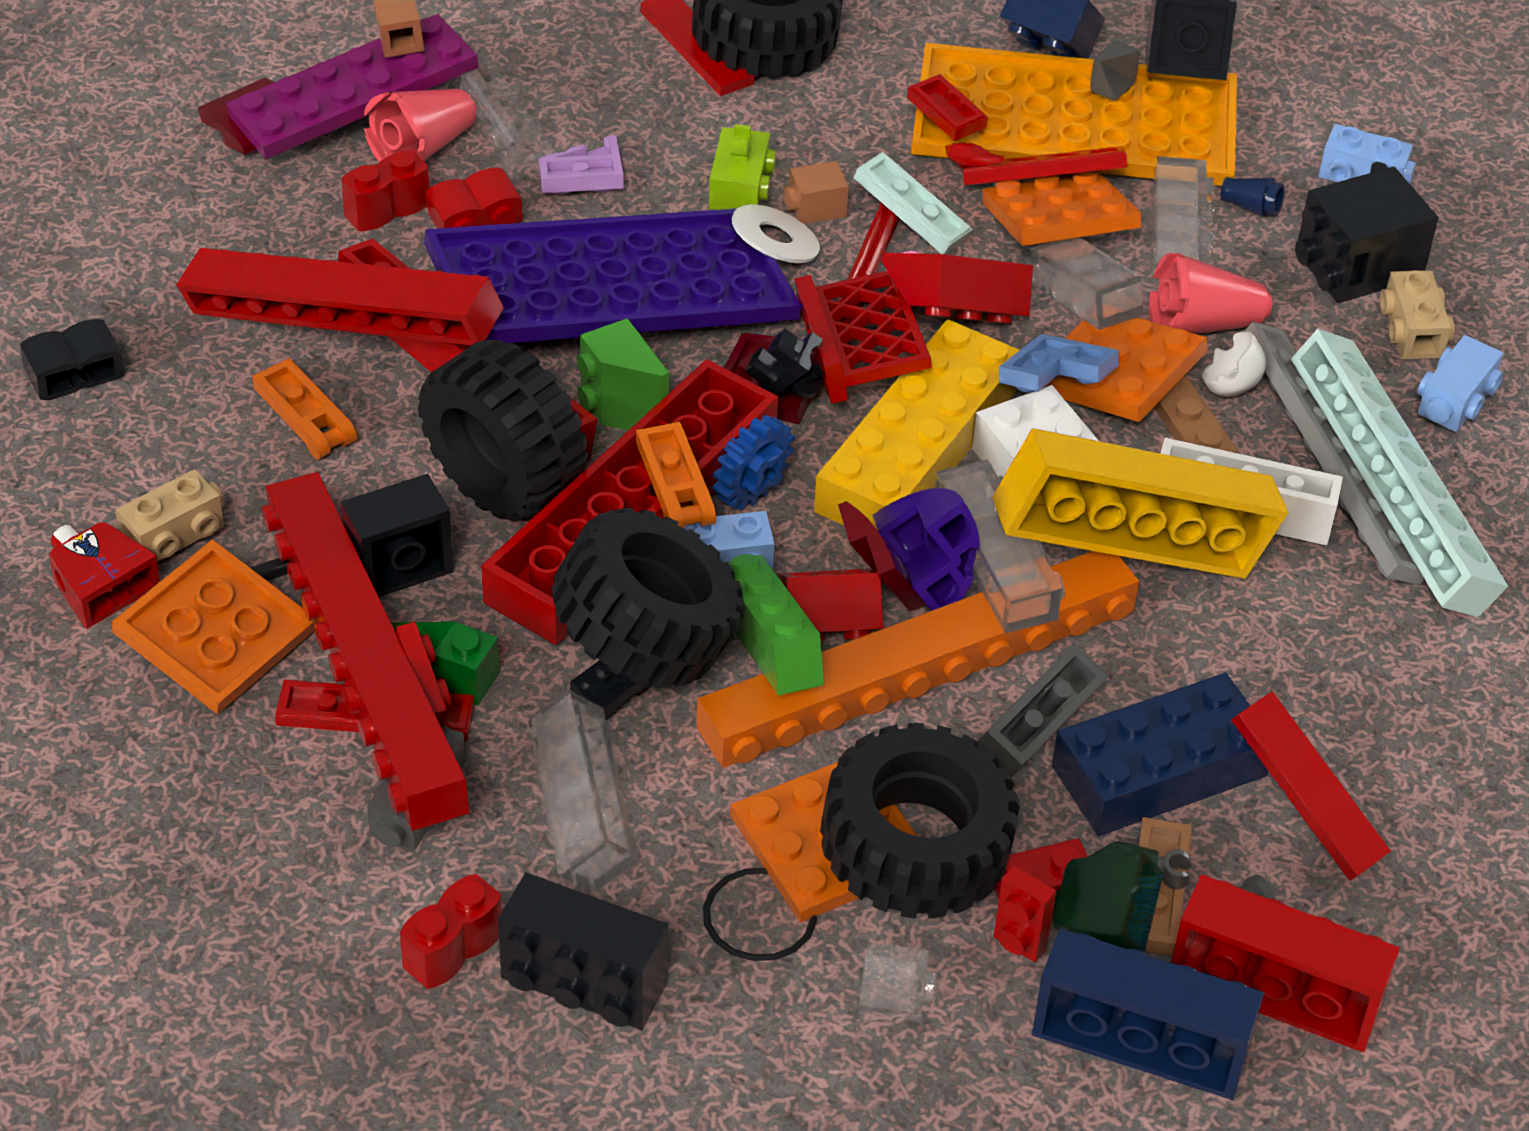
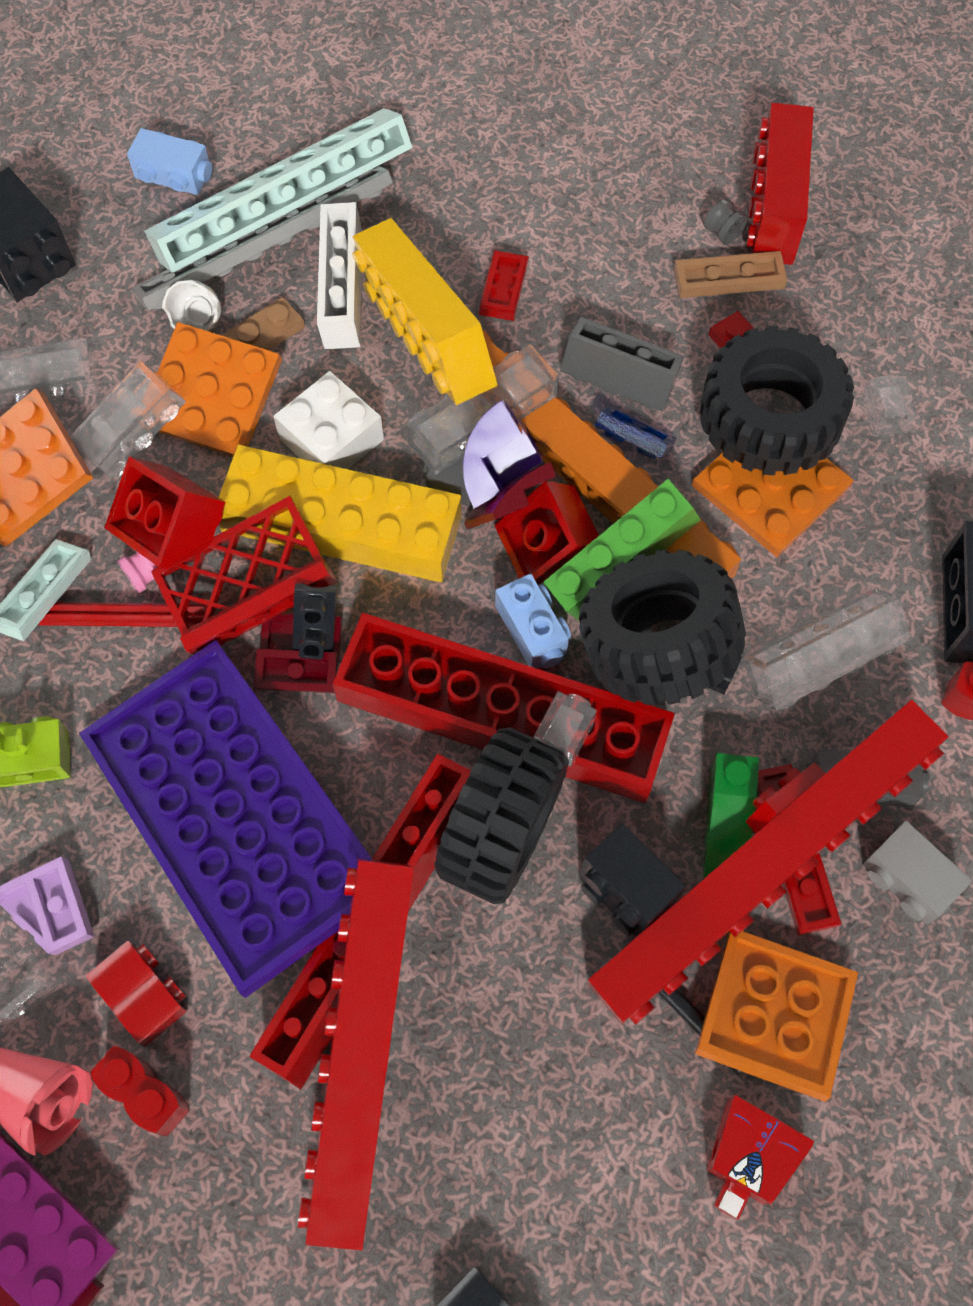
camera: 105 degrees left, 20 degrees up
(173, 515) = (671, 1109): tan brick -> none
(292, 790) = (916, 874): none -> light grey brick
(304, 408) = (471, 1053): orange plate -> none
(569, 496) = (567, 724): none -> clear brick
(619, 375) = (364, 755): bright green slope -> none
(675, 474) = (502, 656): orange plate -> none
(747, 224) = (137, 689): white gear -> none
(753, 462) = (437, 614): blue gear -> none
(753, 957) = (874, 546): black piece -> none
(817, 192) = (40, 675): nougat brick -> none
(952, 704) = (648, 439): none -> clear blue plate
(1024, 914) = (819, 319): red plate -> none
(1050, 356) = (241, 419): medium blue plate -> none
(1117, 892) = (773, 284): clear green torso -> none
(1146, 1013) = (858, 248): dark blue brick -> none
(1156, 755) = (619, 282): dark blue brick -> none
(1201, 650) = (503, 285): none -> red plate
(1205, 297) = (118, 340): coral cone -> none
(1311, 786) = (621, 191): red tile -> none
(1416, 314) = (88, 202): tan brick -> none

